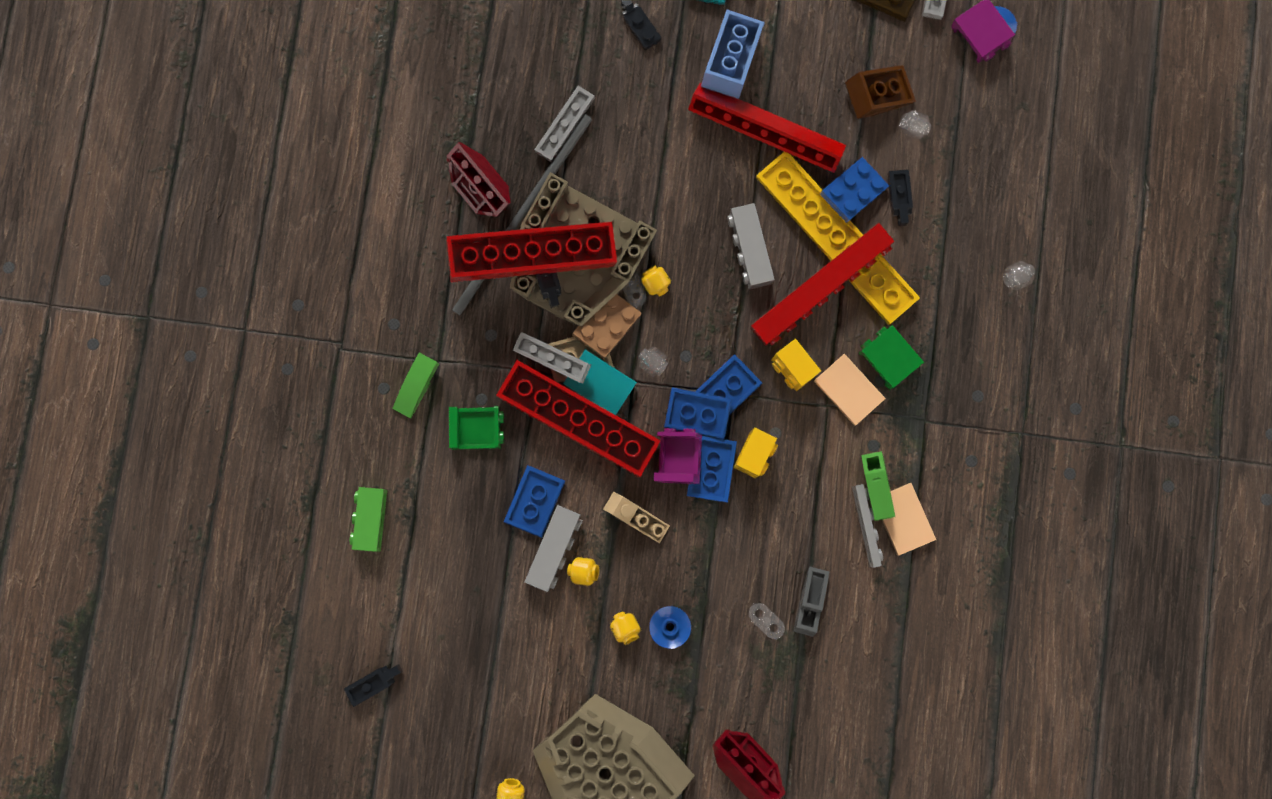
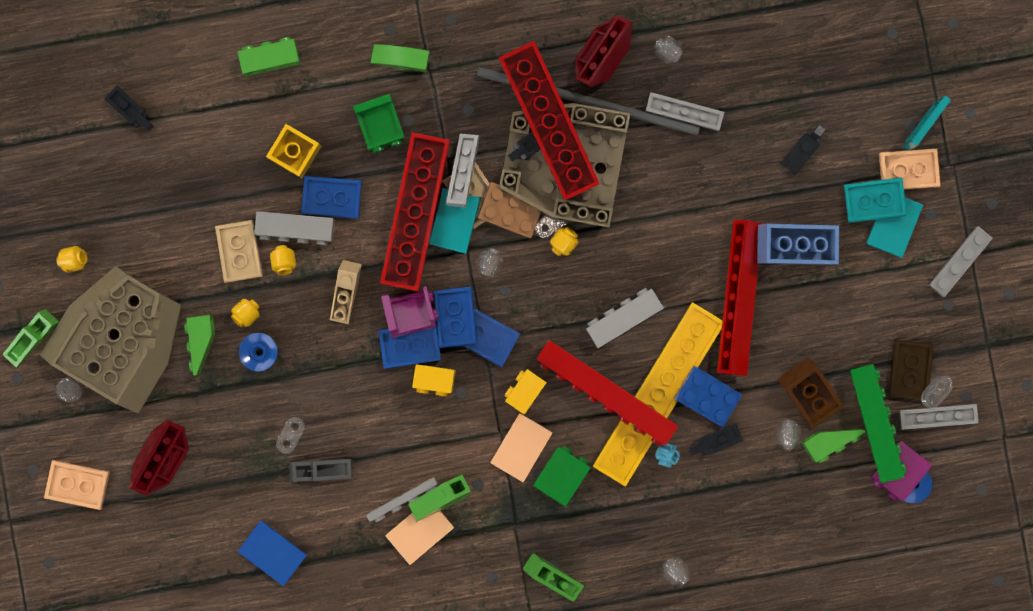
camera: 75 degrees right, 5 degrees up
(474, 523) = (293, 151): none -> yellow brick
(498, 119) = (668, 49): none -> clear head
(558, 615) = (238, 251): none -> tan tile
(634, 682) = (201, 335): none -> bright green slope
(882, 679) = (272, 553): none -> blue tile
(901, 247) = (667, 455): none -> medium azure gear
(933, 35) = (877, 424): none -> green brick
(934, 93) = (826, 442): none -> bright green slope
(990, 399) = (552, 577): none -> bright green slope

